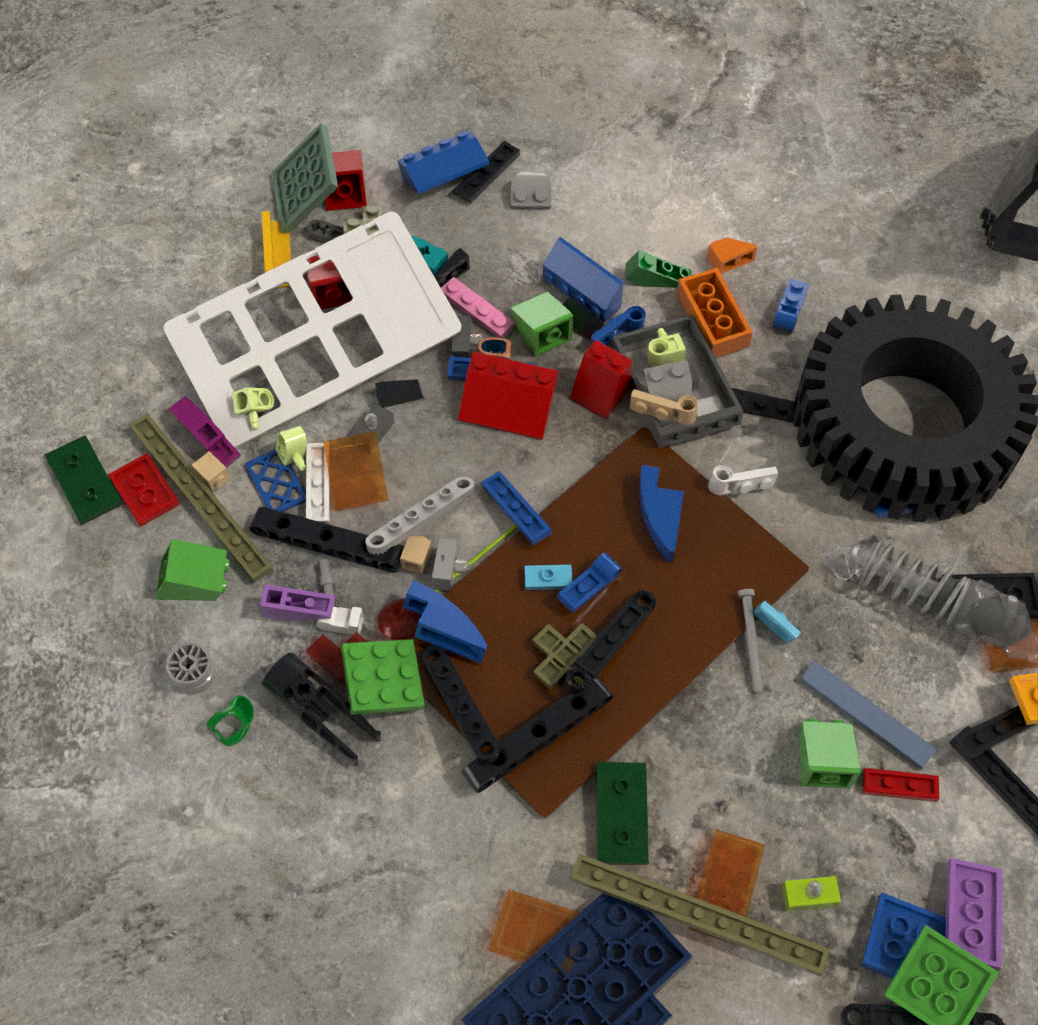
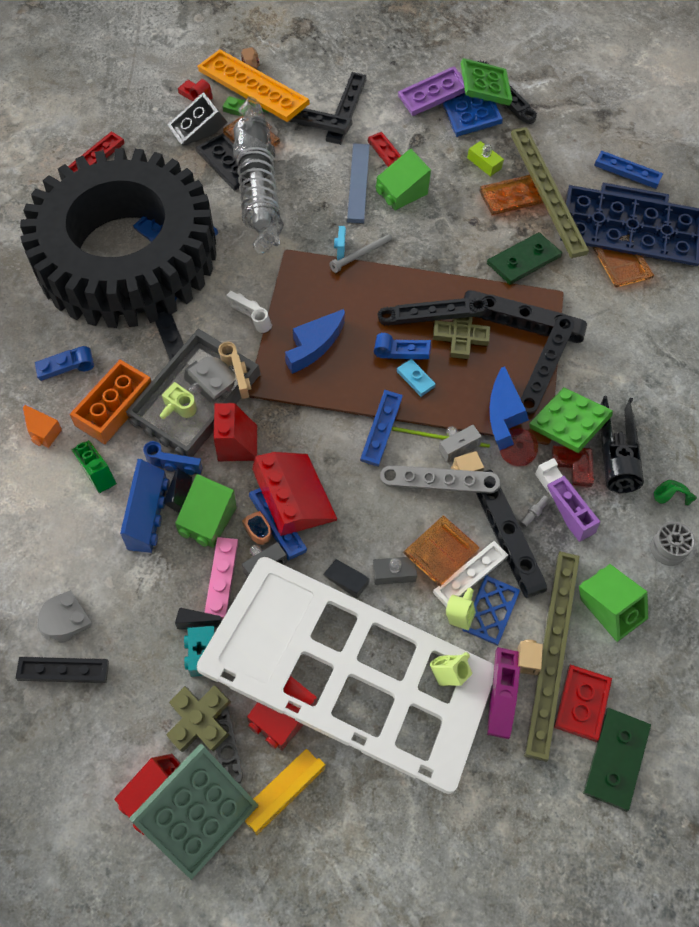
camera: 130 degrees left, 0 degrees up
(442, 162) = (83, 707): blue slope -> none

